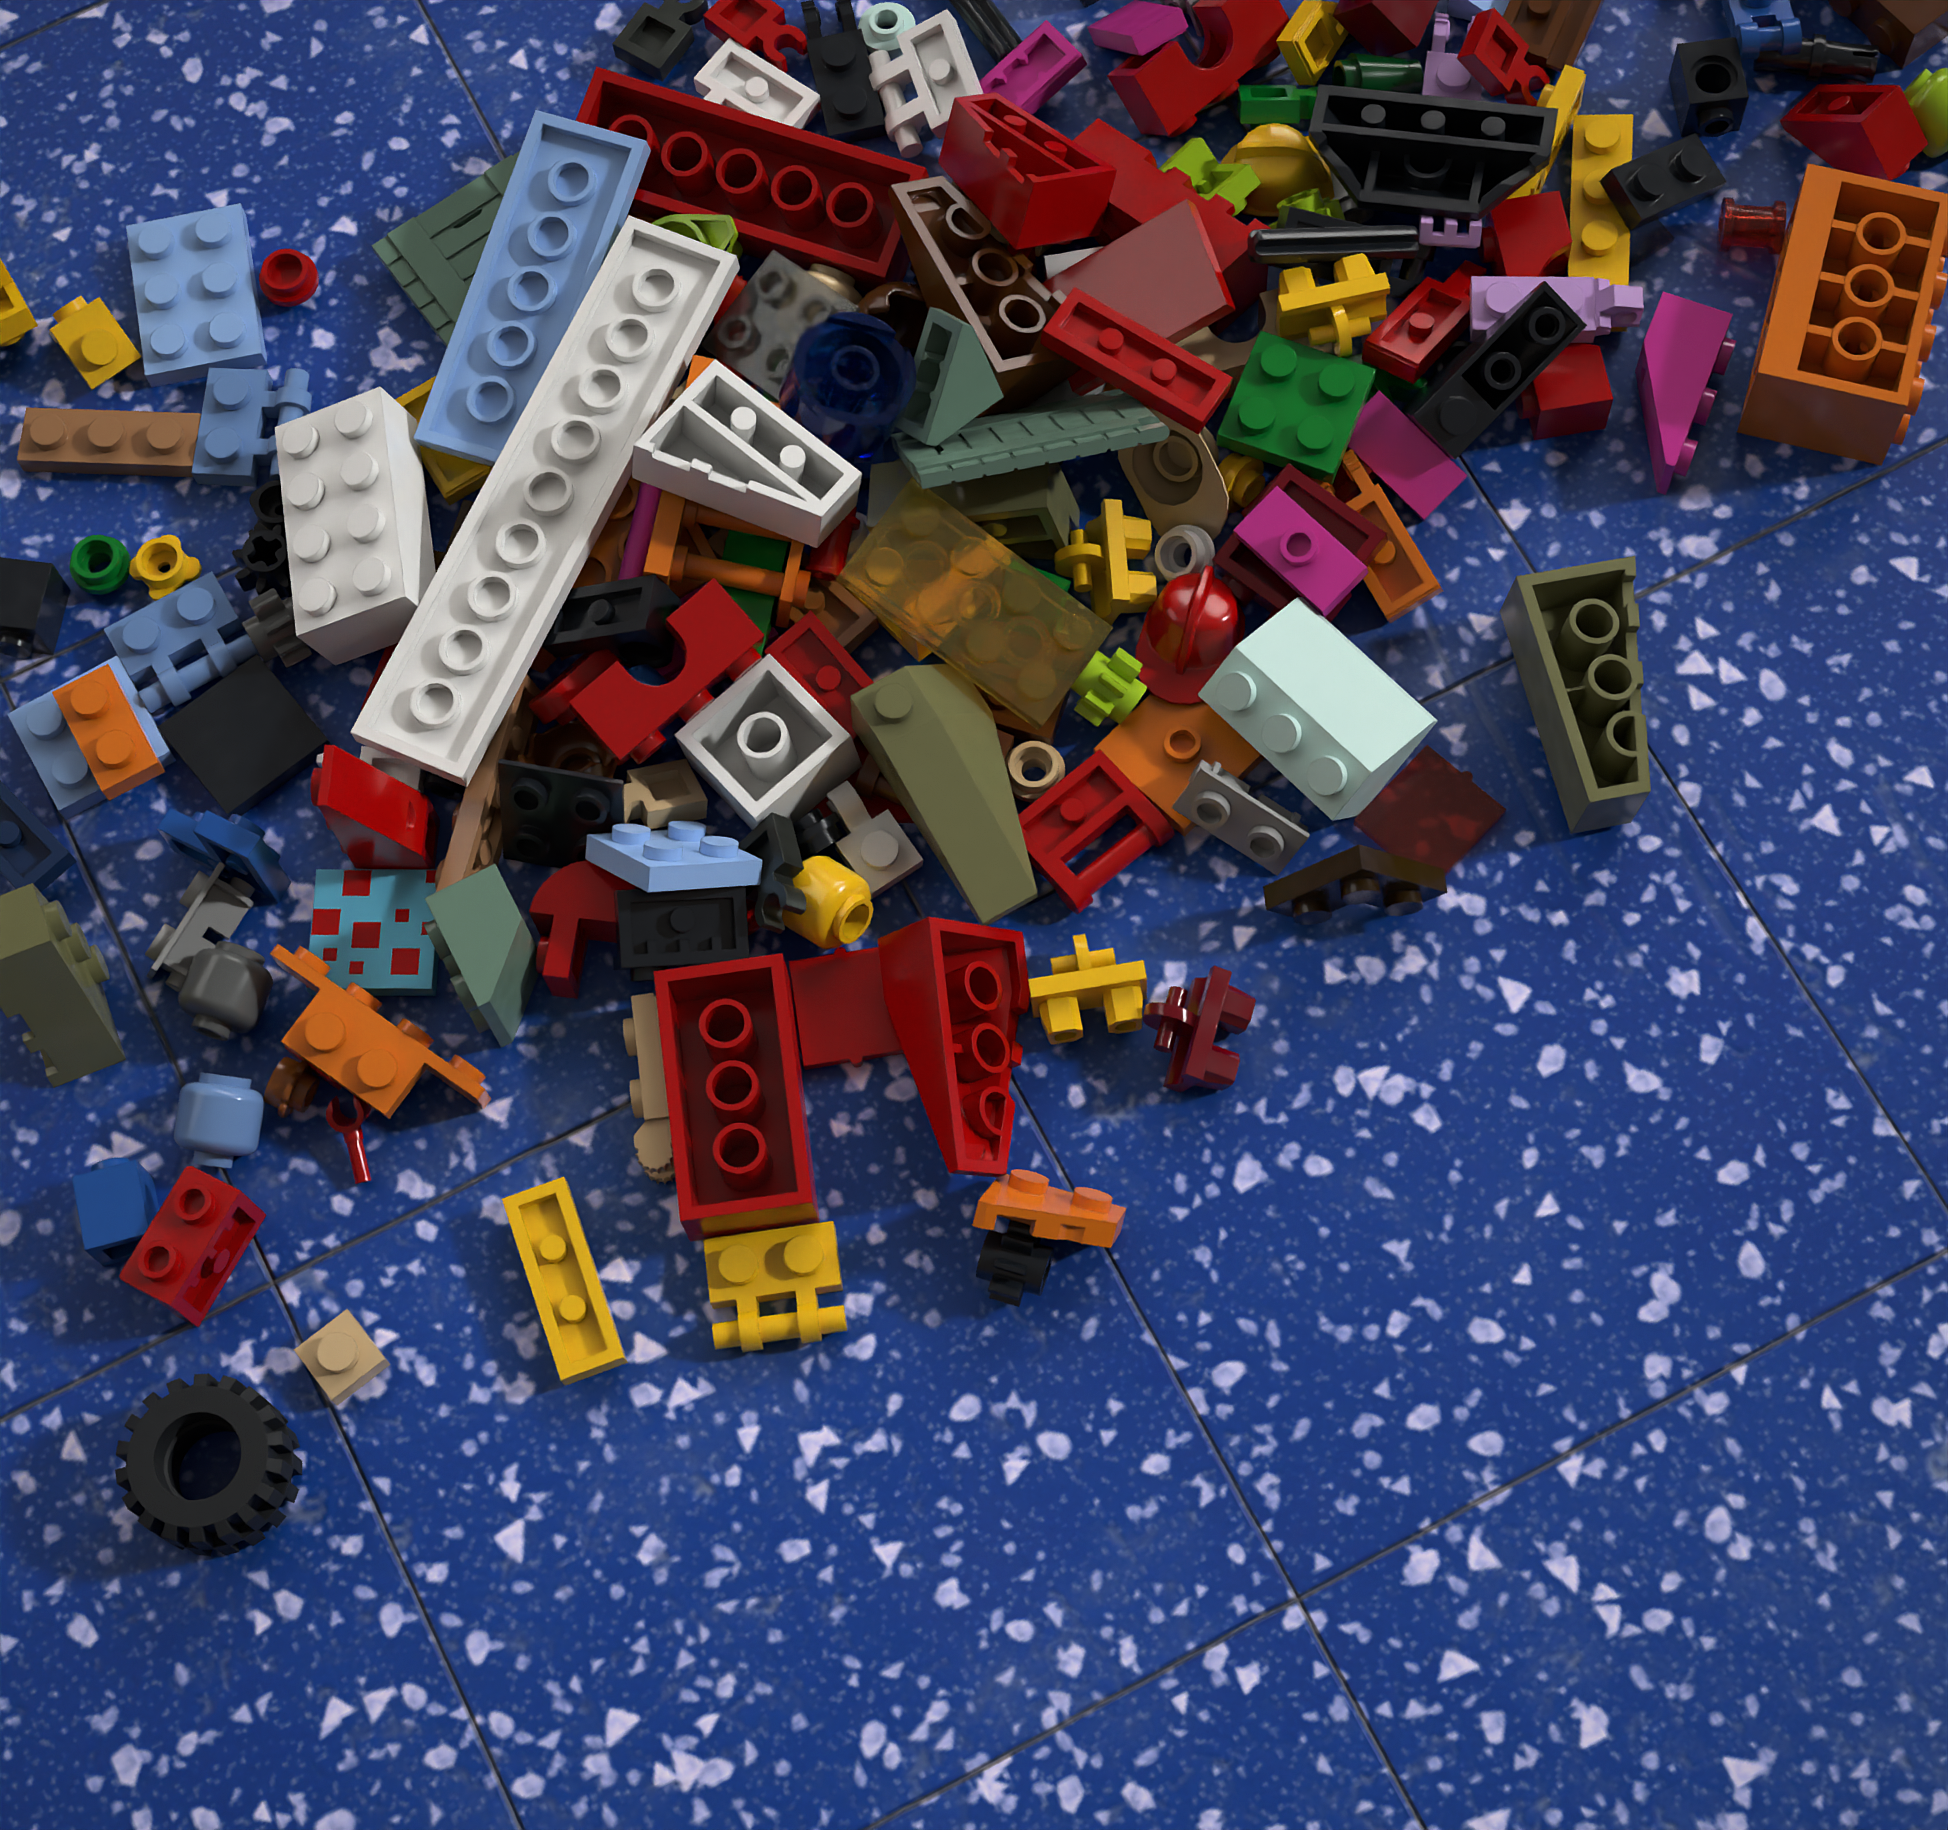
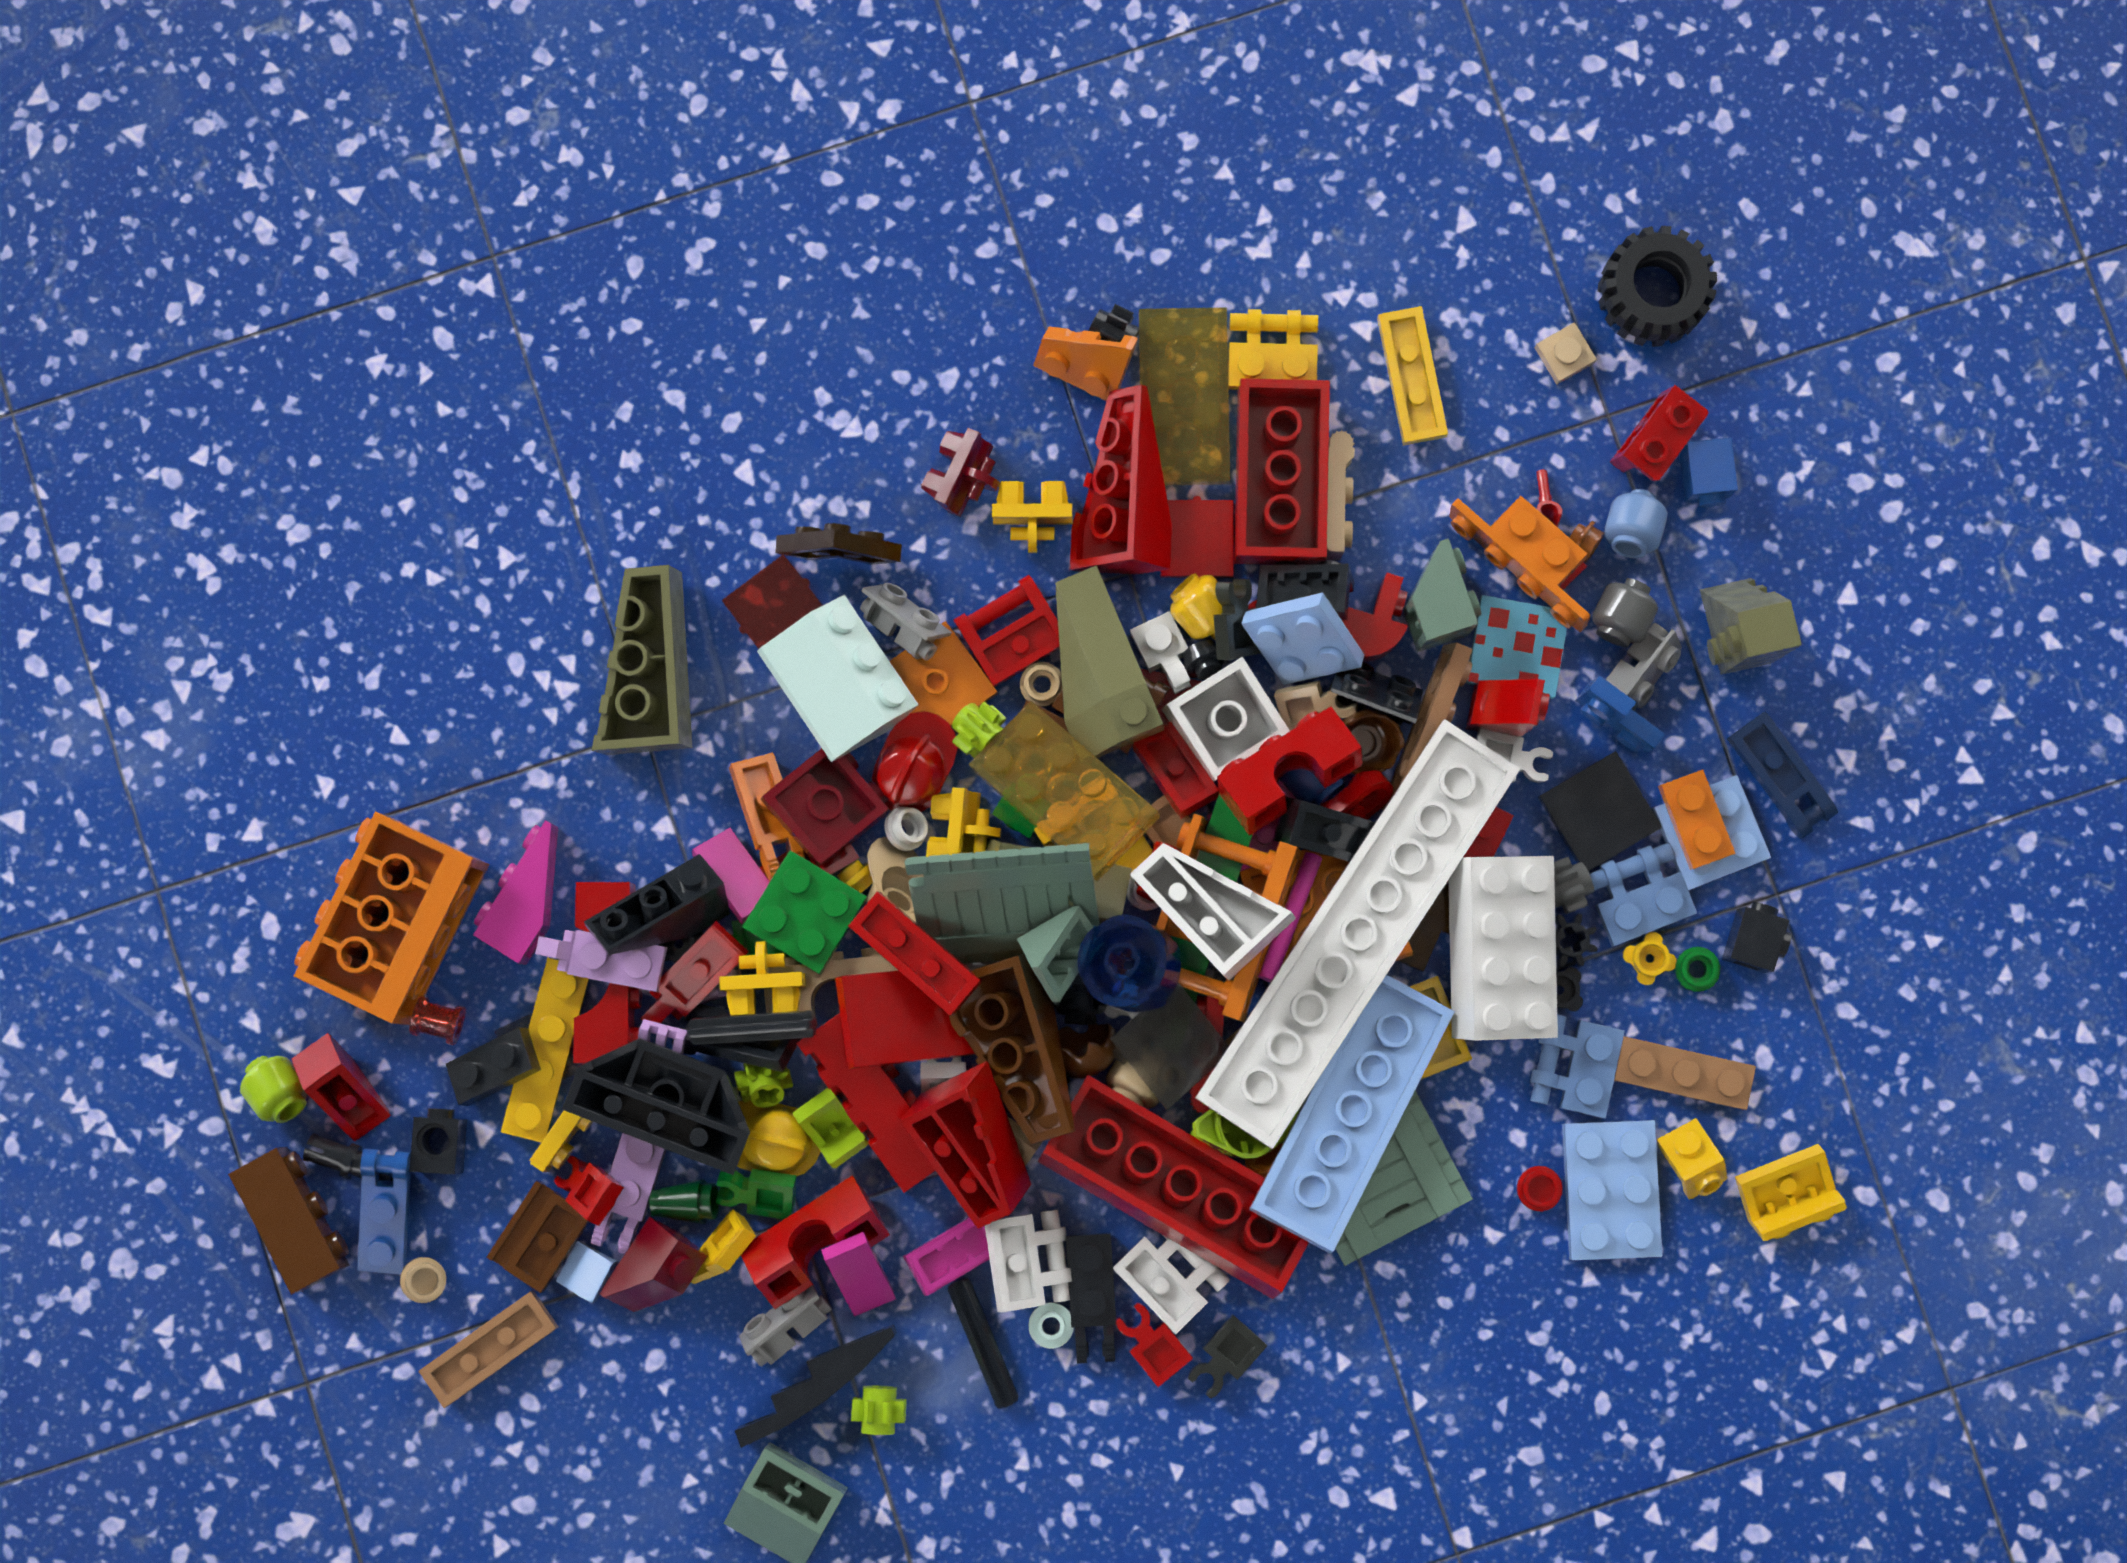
camera: 175 degrees left, 15 degrees up
(894, 1208) = (1187, 384): none -> clear yellow plate
(1300, 551) = (825, 792): dark pink plate -> none

